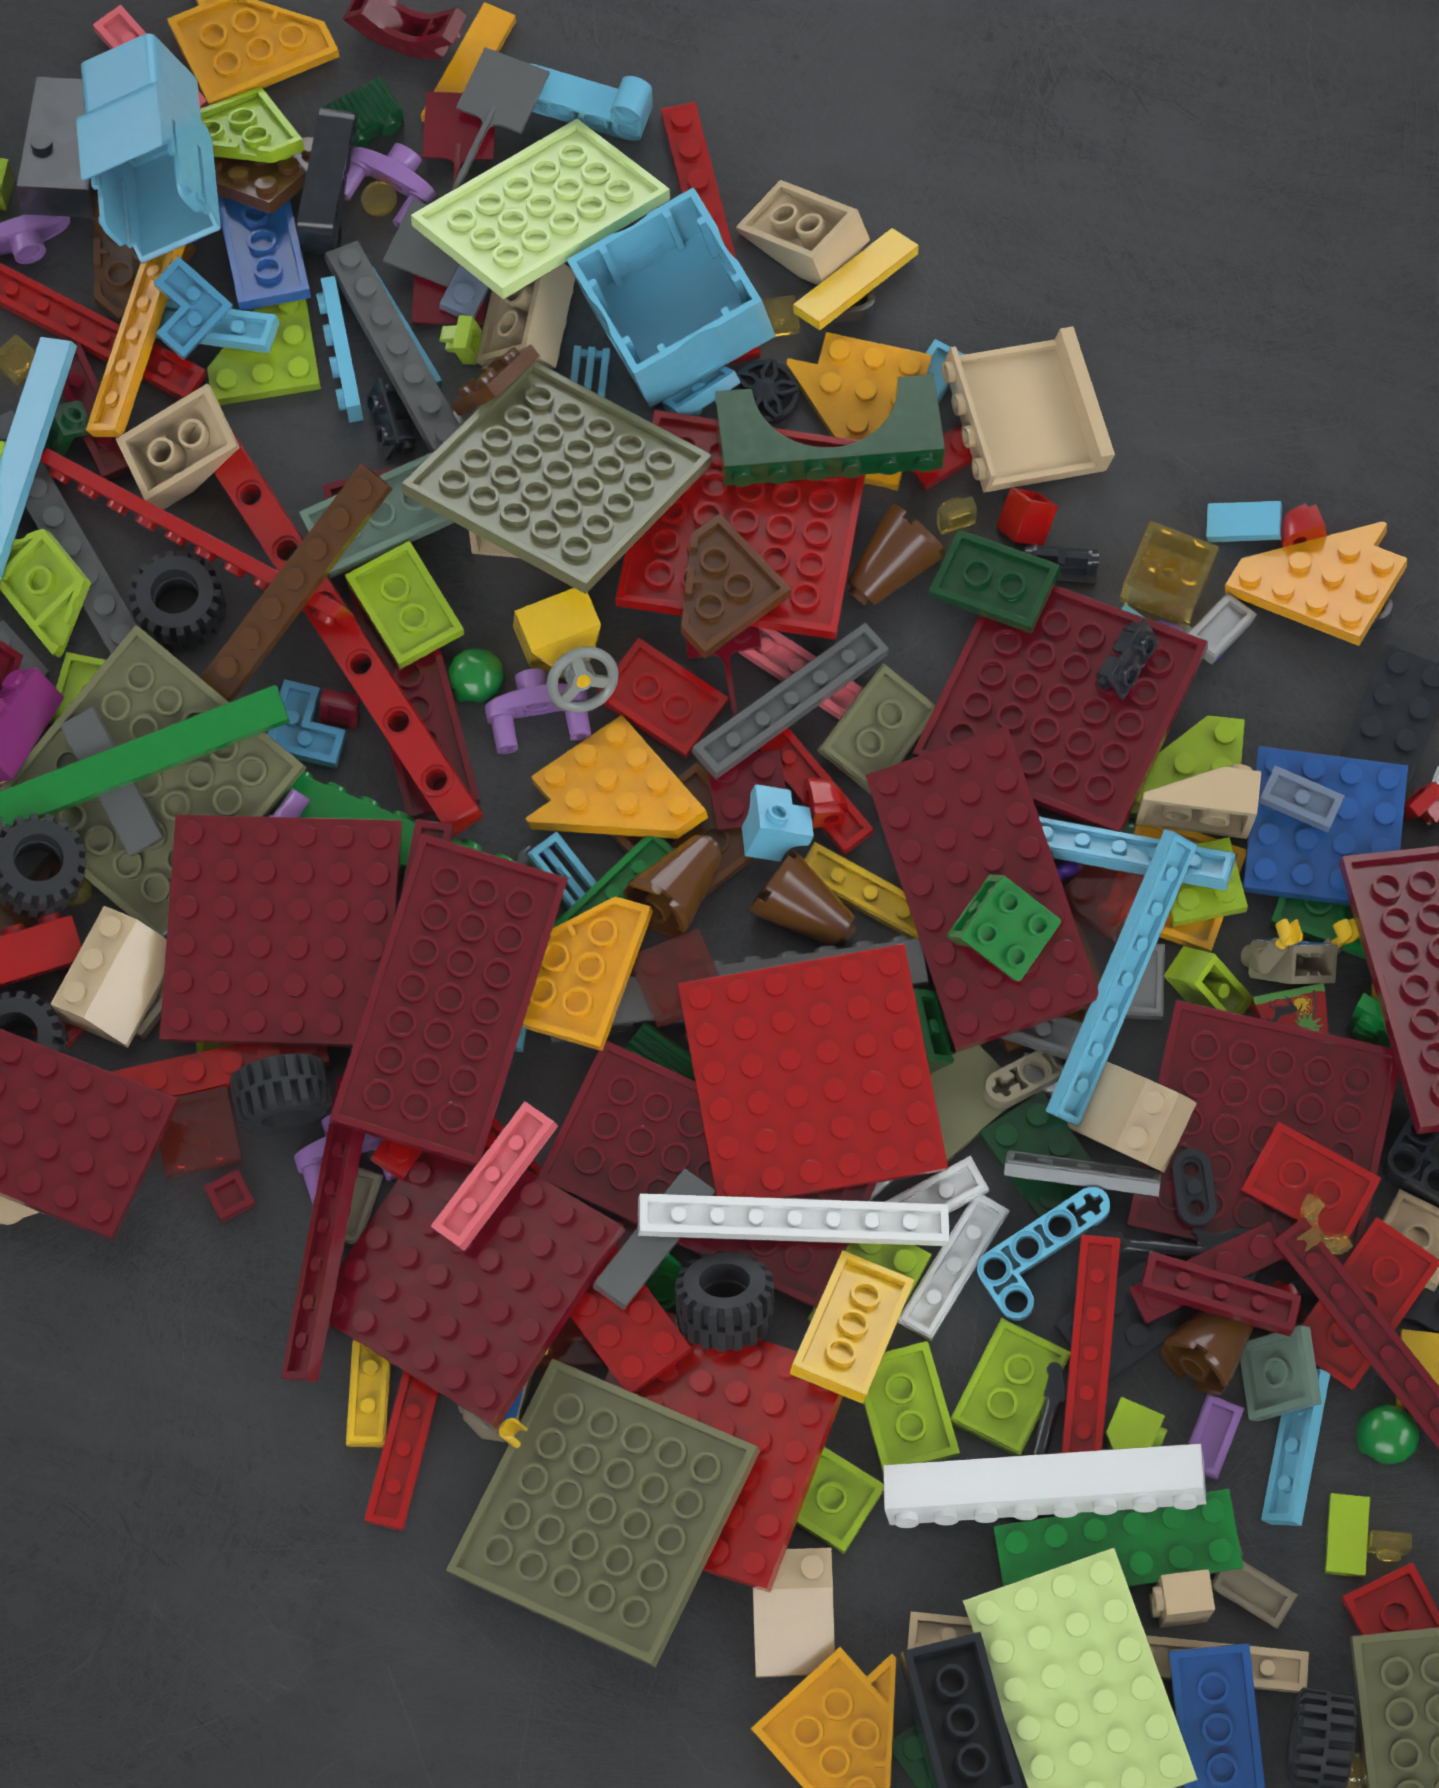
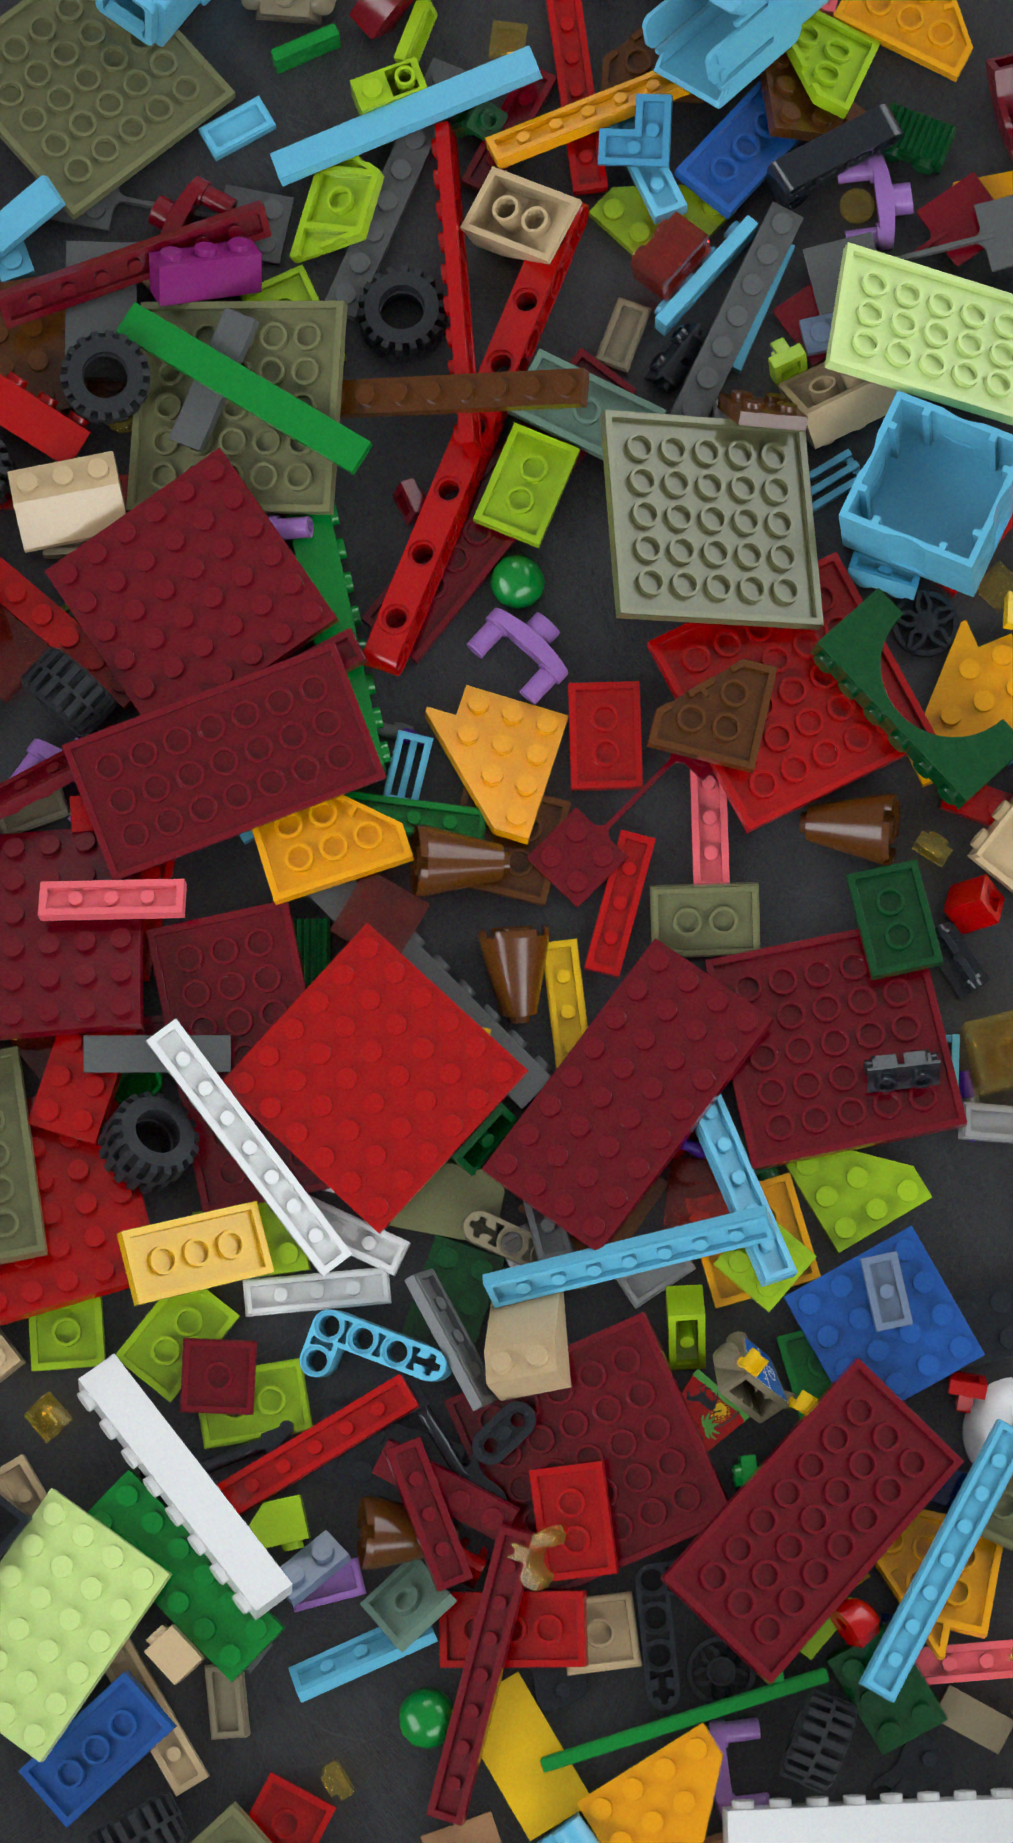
camera: 55 degrees right, 10 degrees up
(302, 736) = (367, 486): dark azure plate -> none
(305, 359) = (670, 255): none -> clear red brick
(334, 446) = (623, 335): none -> dark tan tile
(562, 639) = (585, 632): yellow piece -> none
(775, 824) = (559, 899): medium azure brick -> none
(790, 701) = (671, 836): dark grey plate -> none
(825, 802) = (608, 923): red piece -> none
(895, 1567) = (48, 1417): none -> clear yellow plate
(967, 1394) = (218, 1376): none -> dark red tile
(1005, 926) = (598, 1137): green bracket -> none
(1190, 1425) = (314, 1566): none -> sand blue plate
(1208, 803) = (830, 1223): tan slope -> none
(1347, 1535) = (324, 1742): lime tile -> none

